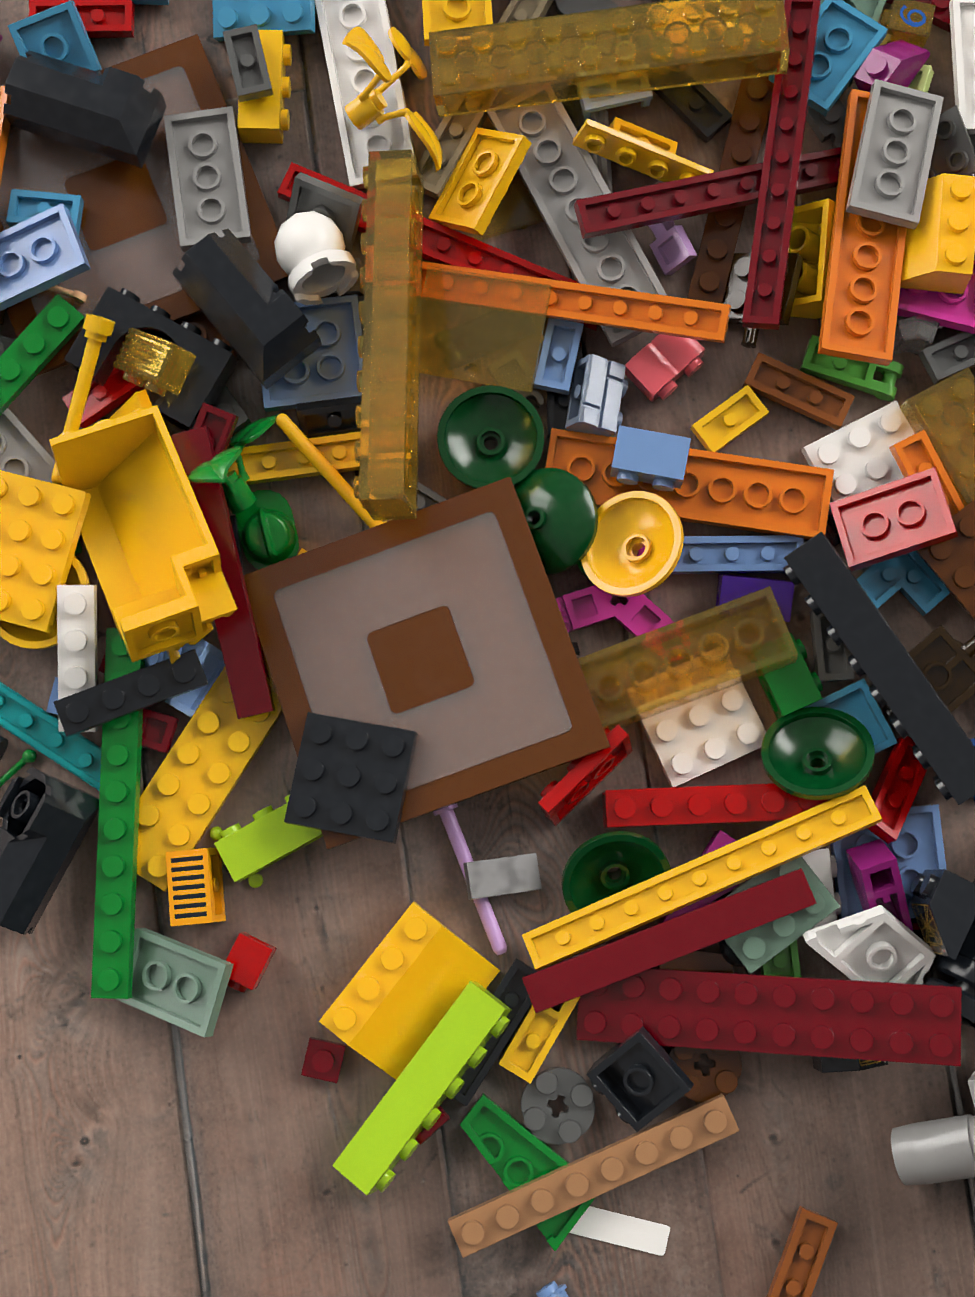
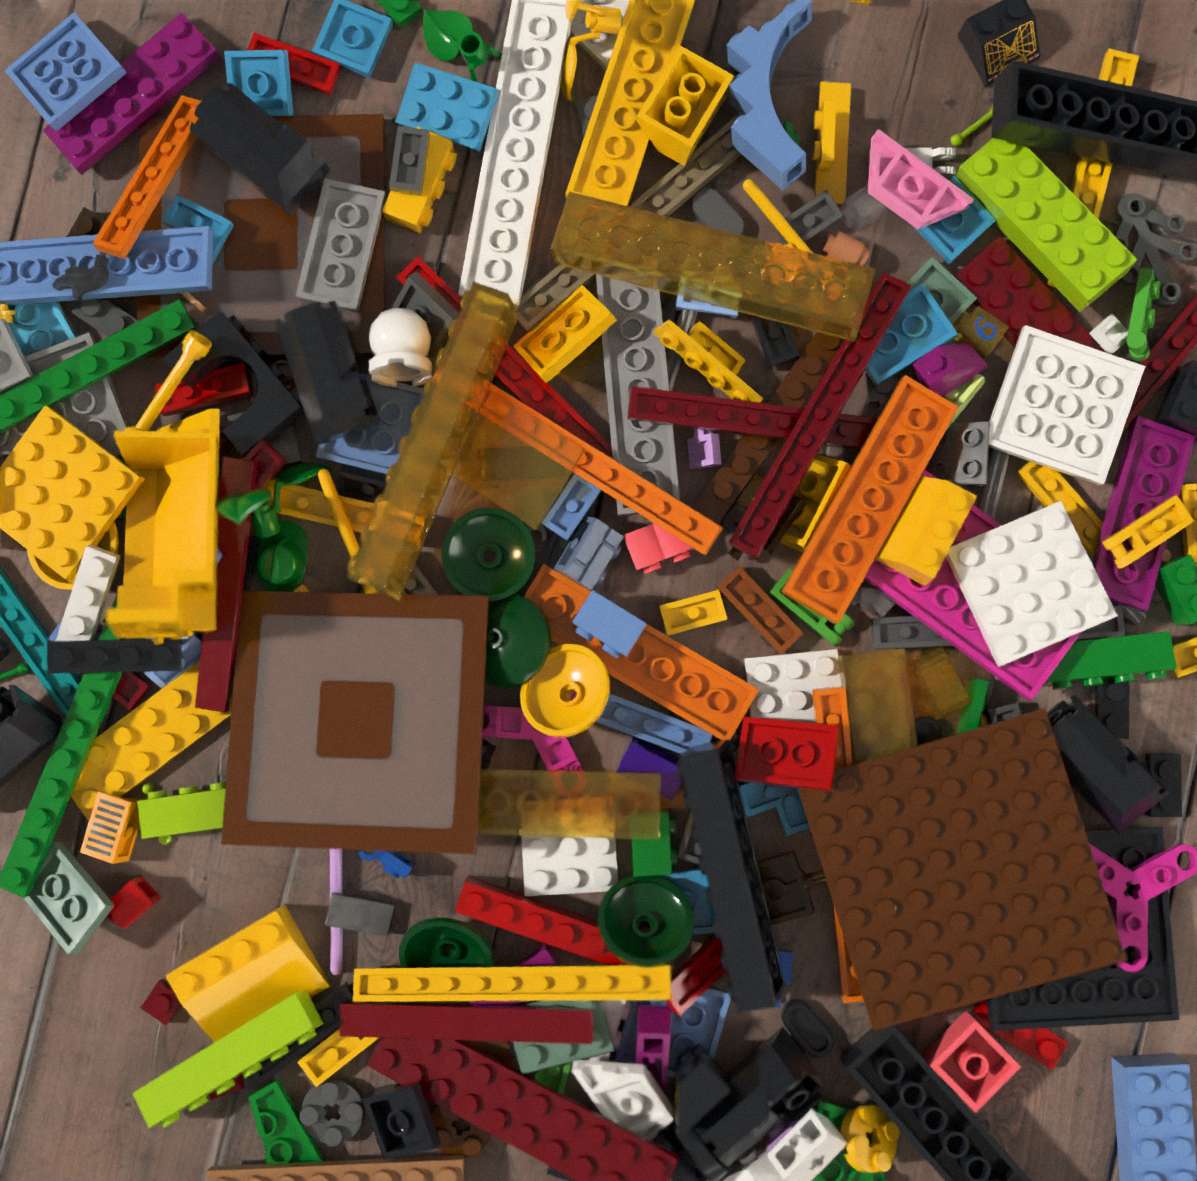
camera: 25 degrees right, 5 degrees up
(154, 361) = (232, 391): clear yellow brick -> none
(351, 777) = (261, 795): black plate -> none
(370, 103) = (497, 235): yellow plant -> none
(519, 806) = (394, 862): none -> blue plate
(583, 776) = (426, 873): red plate -> none
(894, 154) = (915, 447): light grey plate -> none

